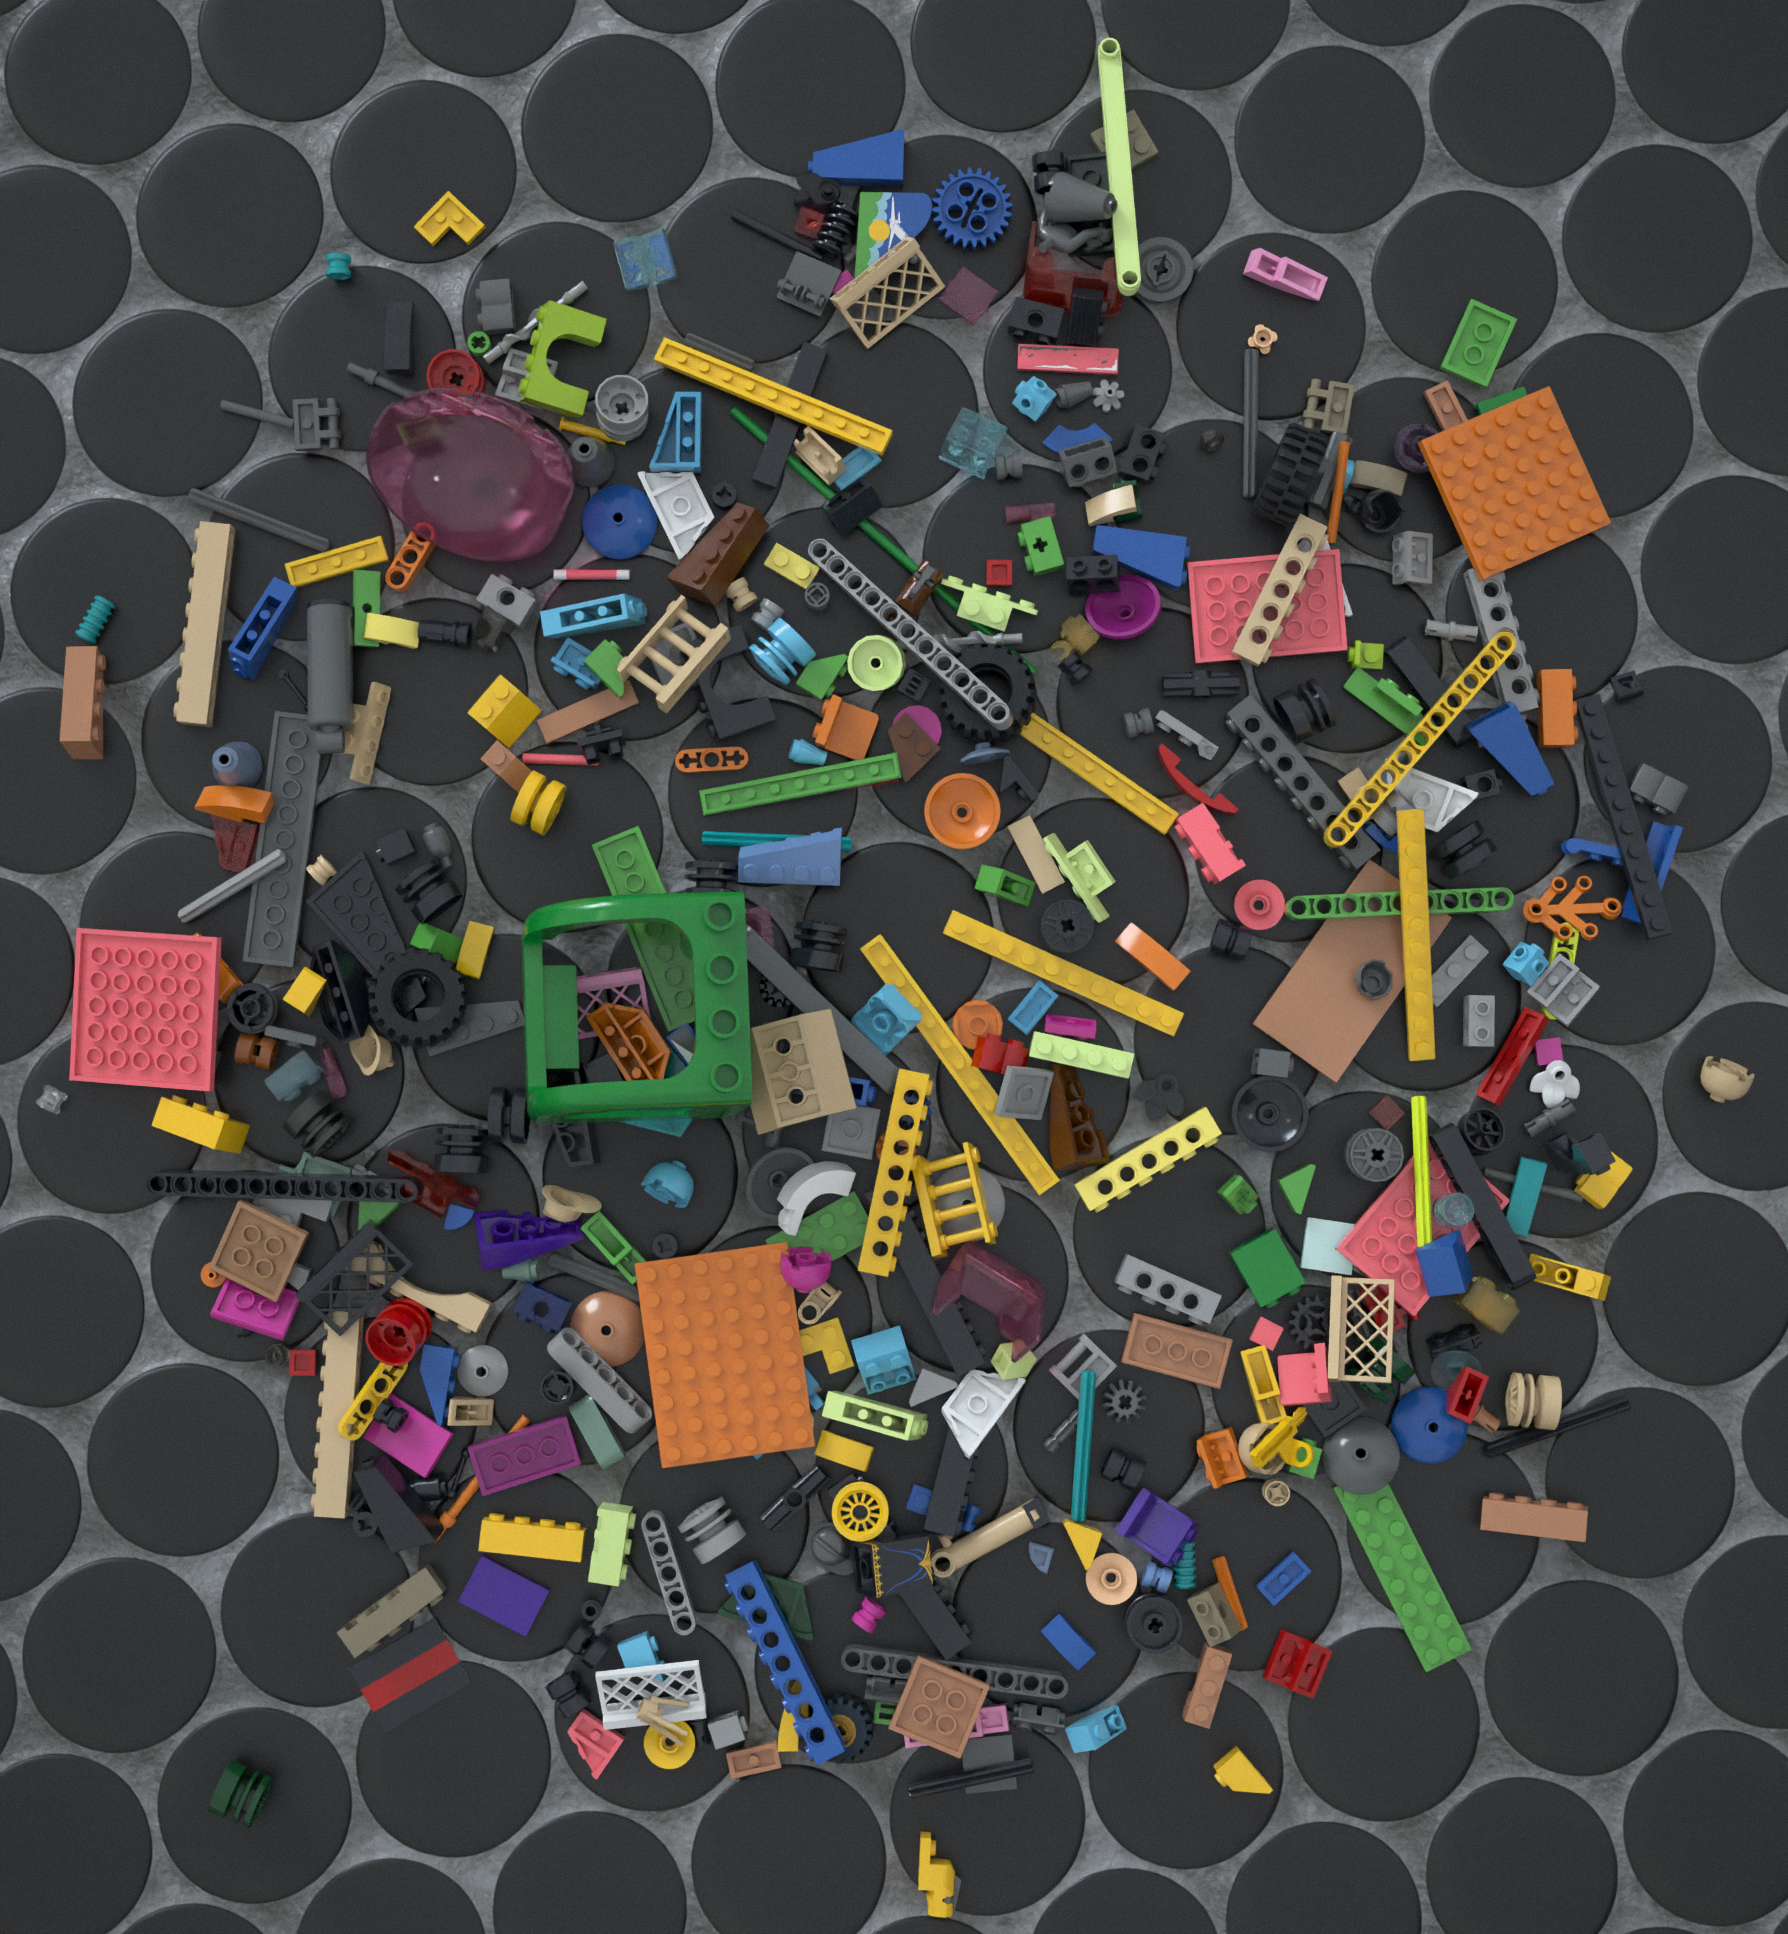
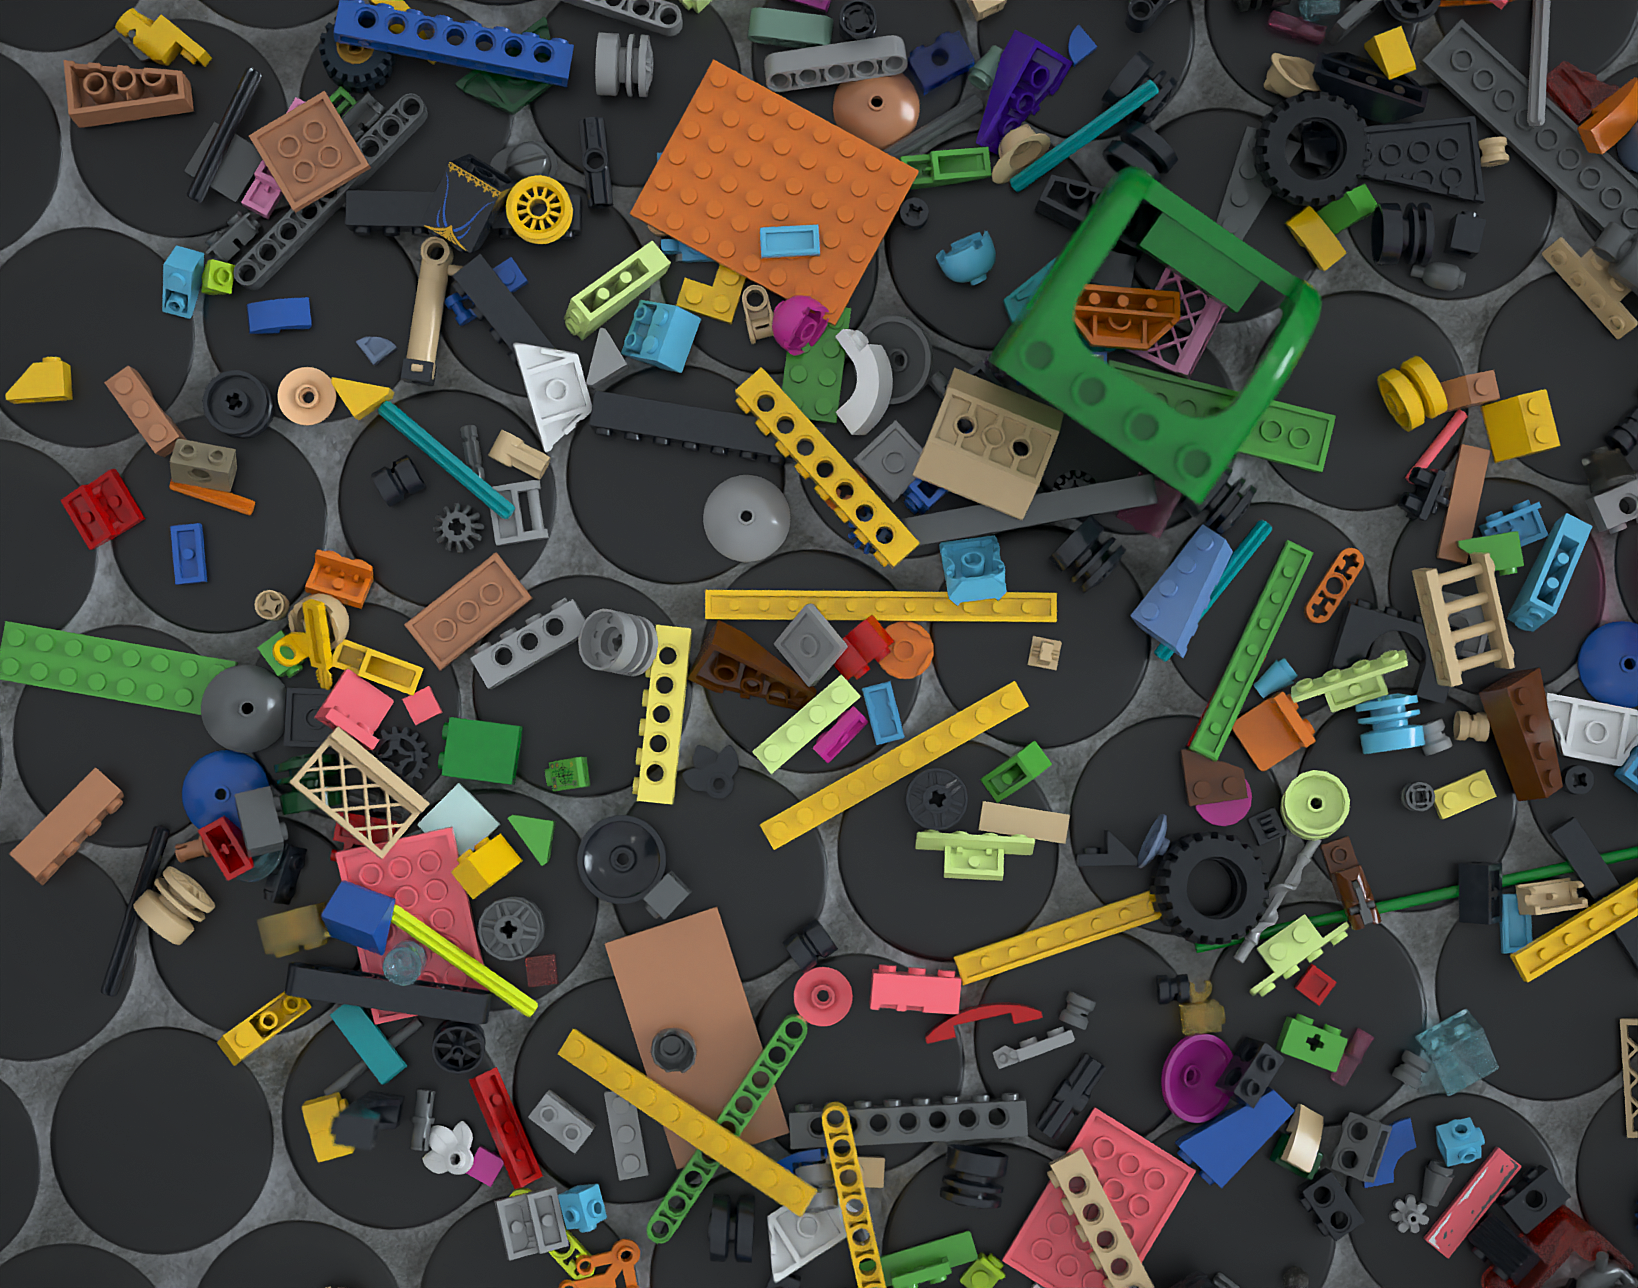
camera: 125 degrees right, 0 degrees up
(438, 1188) = (1118, 43): clear red bracket -> none
(524, 1165) = (1084, 135): none -> teal axle
(591, 574) = (1590, 602): coral bar -> none
(752, 1317) = (789, 241): none -> medium azure tile
(775, 697) = (1353, 684): none -> yellowish green bracket
(821, 675) = (1339, 746): bright green slope -> none
(844, 1450) = (605, 239): yellow slope -> none
(867, 1616) = (439, 150): dark pink wheel -> none
(907, 926) = (1044, 653): none -> tan brick
(918, 641) = (1308, 858): light grey beam -> none
(929, 1193) = (782, 488): yellow fence -> none
(966, 793) = (1137, 780): orange dish -> none
(968, 295) = (1601, 1153): clear pink piece -> none
(994, 1874) = (123, 94): none -> nougat wedge
(999, 1289) = (649, 487): clear pink windscreen -> none
(1009, 1369) = (572, 454): yellowish green panel -> none
(1042, 1402) = (513, 452): none -> tan piece
(1075, 1705) = (217, 278): none -> lime bracket
(1122, 1228) = (618, 642): none -> light grey wheel
(1152, 956) = (848, 859): orange slope -> none
(1156, 1577) = (277, 438): medium blue wheel -> none
(1158, 1527) = (320, 472): dark purple panel -> none
(1185, 1569) = (269, 472): teal piece -> none
(1345, 1204) = (486, 865): none -> yellow brick
(1432, 1384) = (259, 821): none -> dark grey brick

